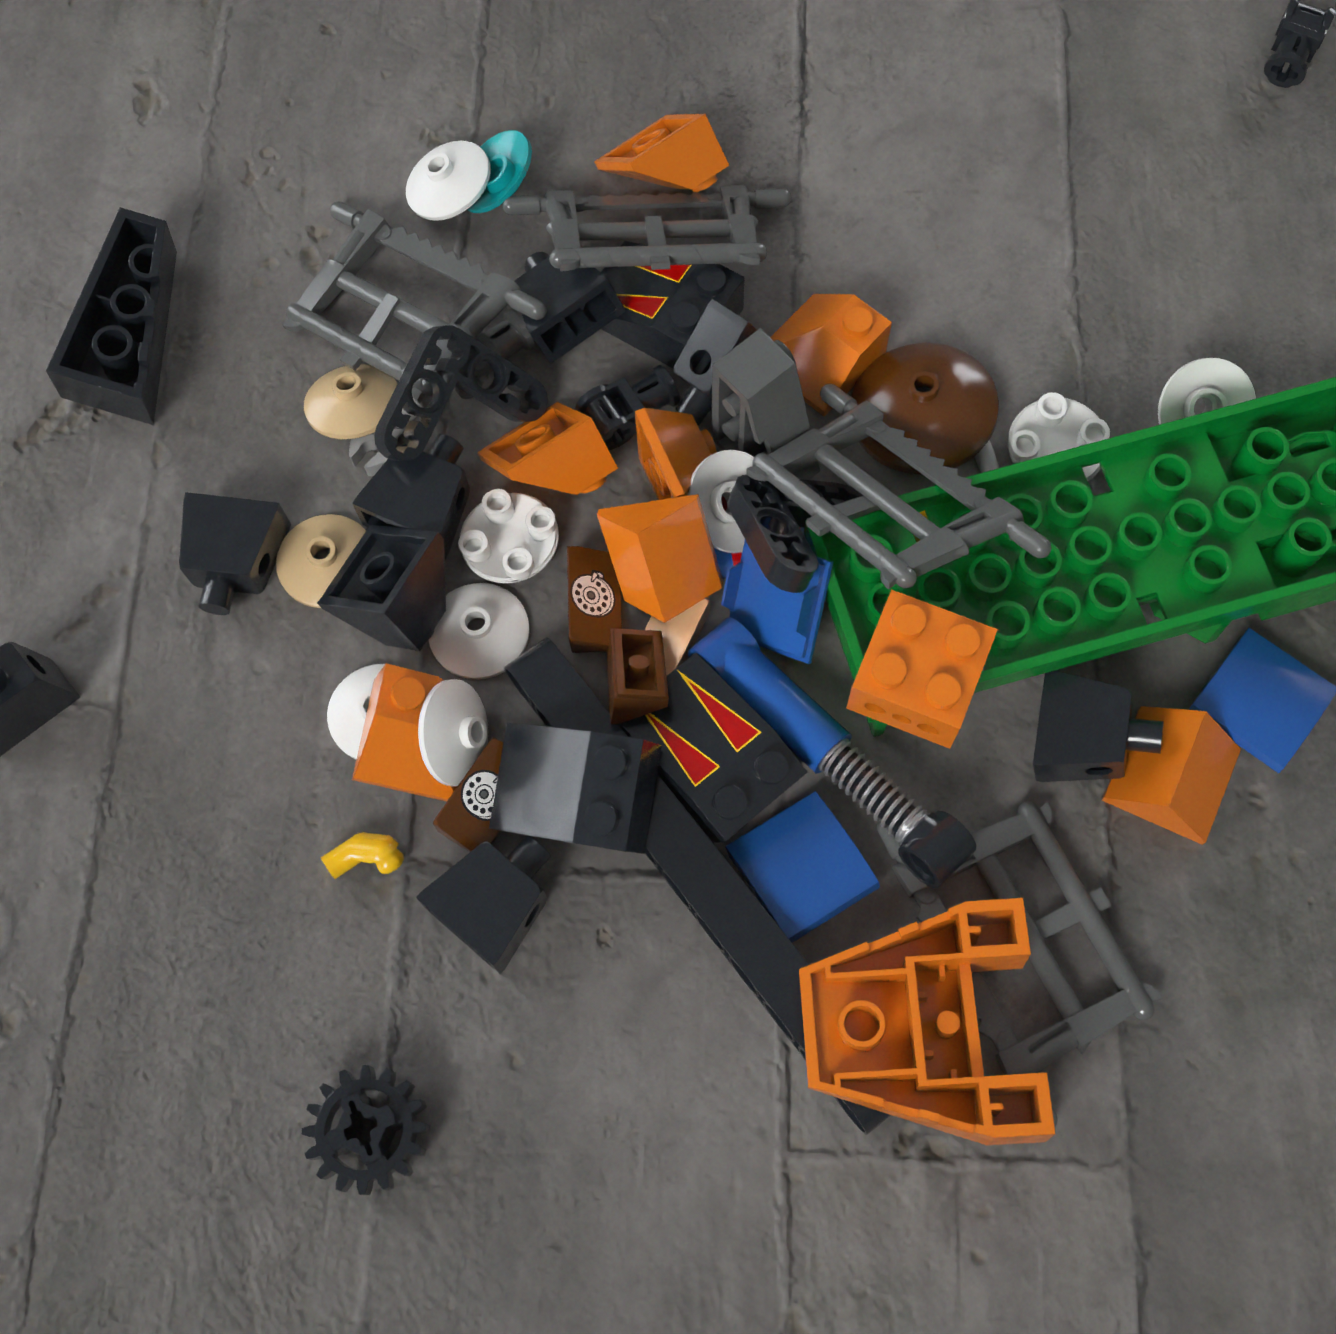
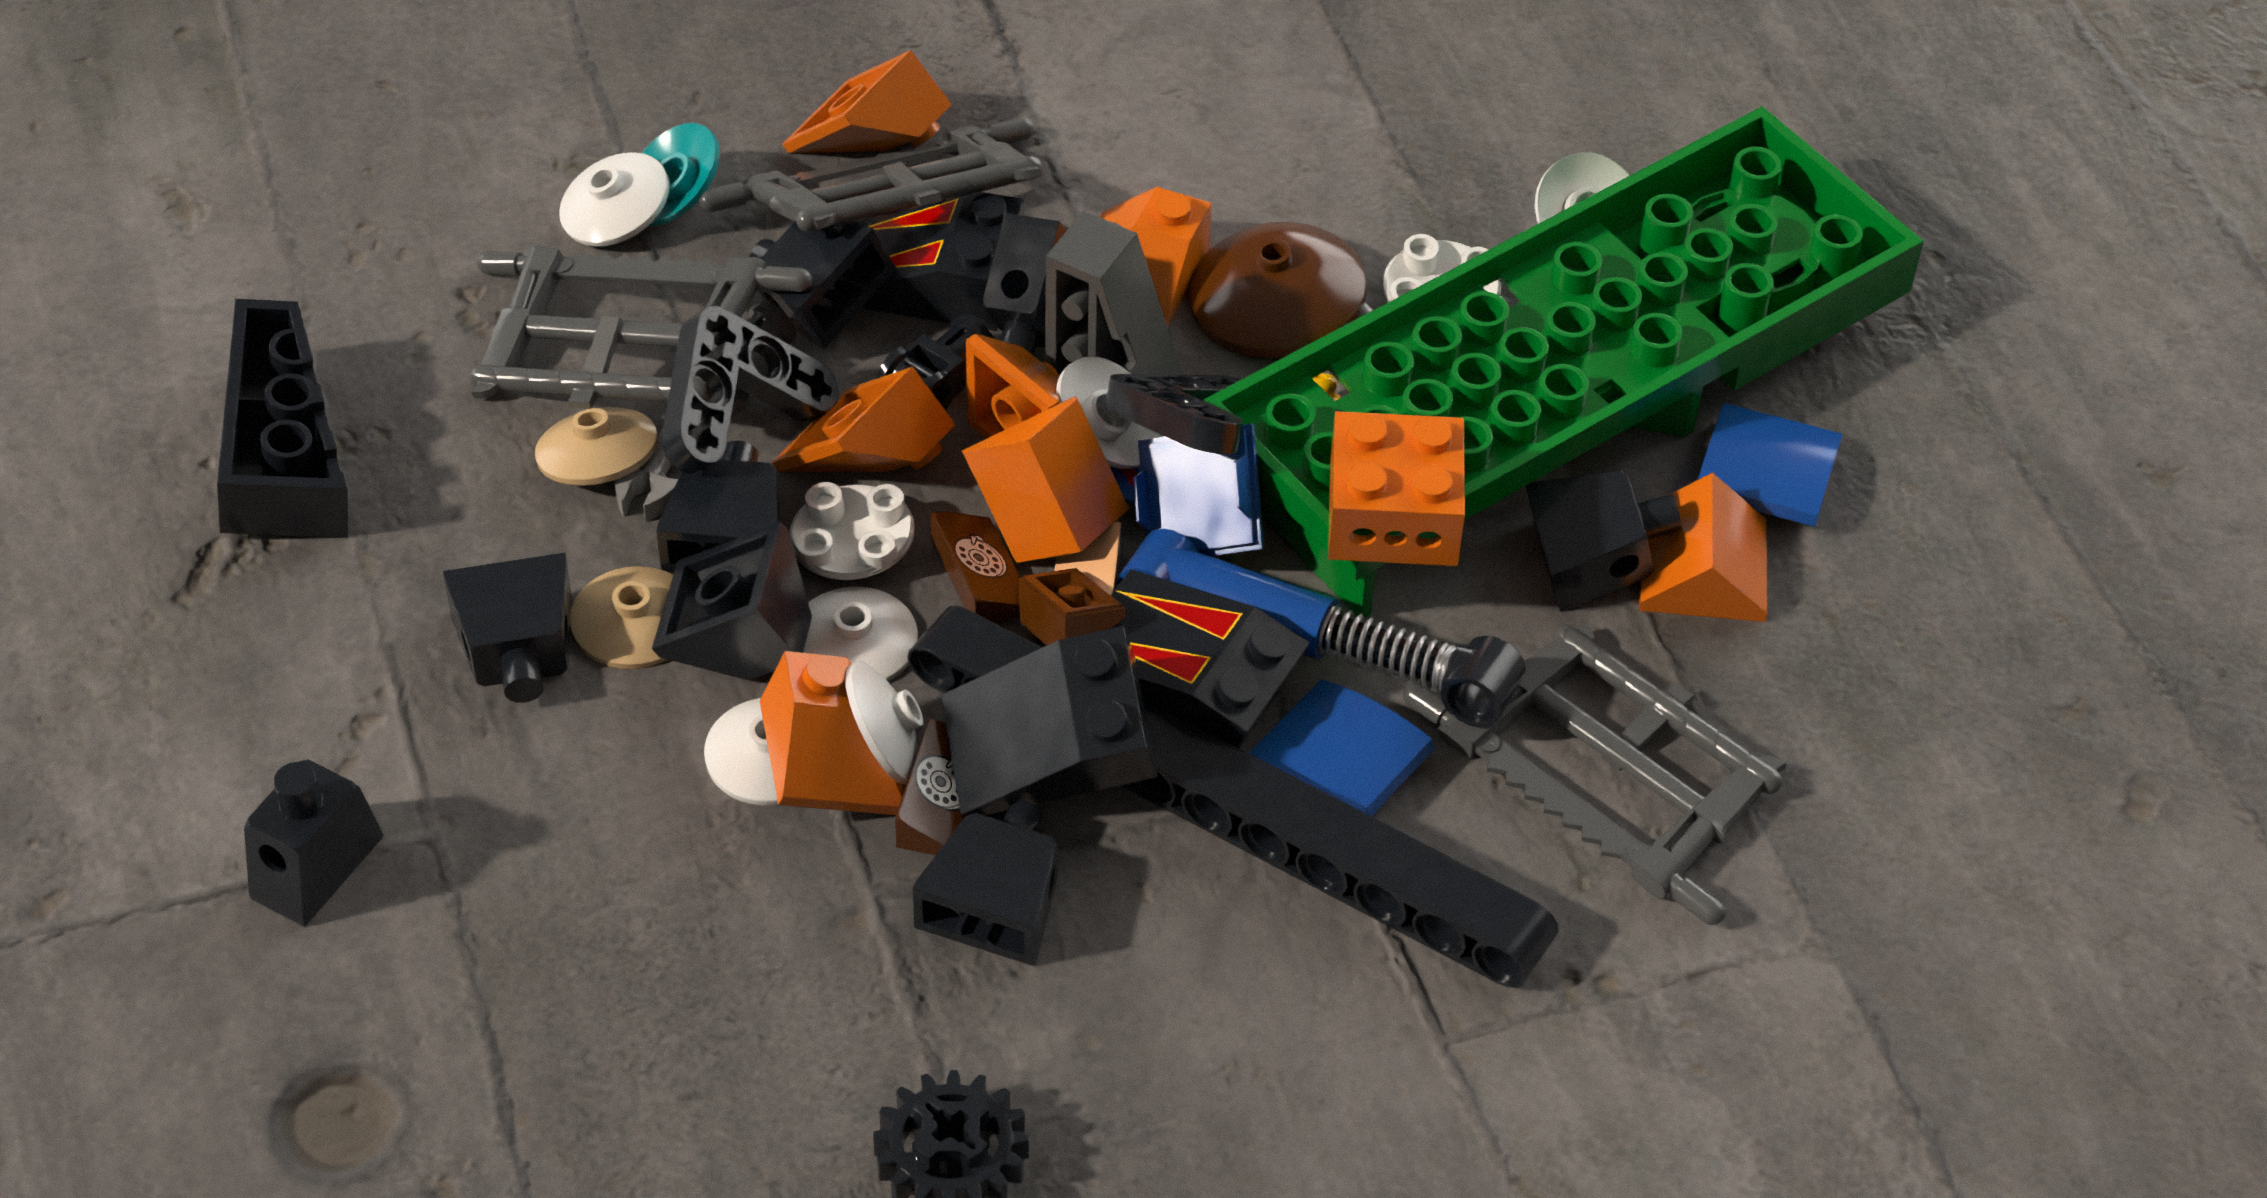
camera: 25 degrees left, 20 degrees down
(364, 848) = (816, 880): yellow arm -> none
(901, 1026) = (1526, 851): orange wedge -> none
(936, 545) = (1354, 372): dark grey piece -> none

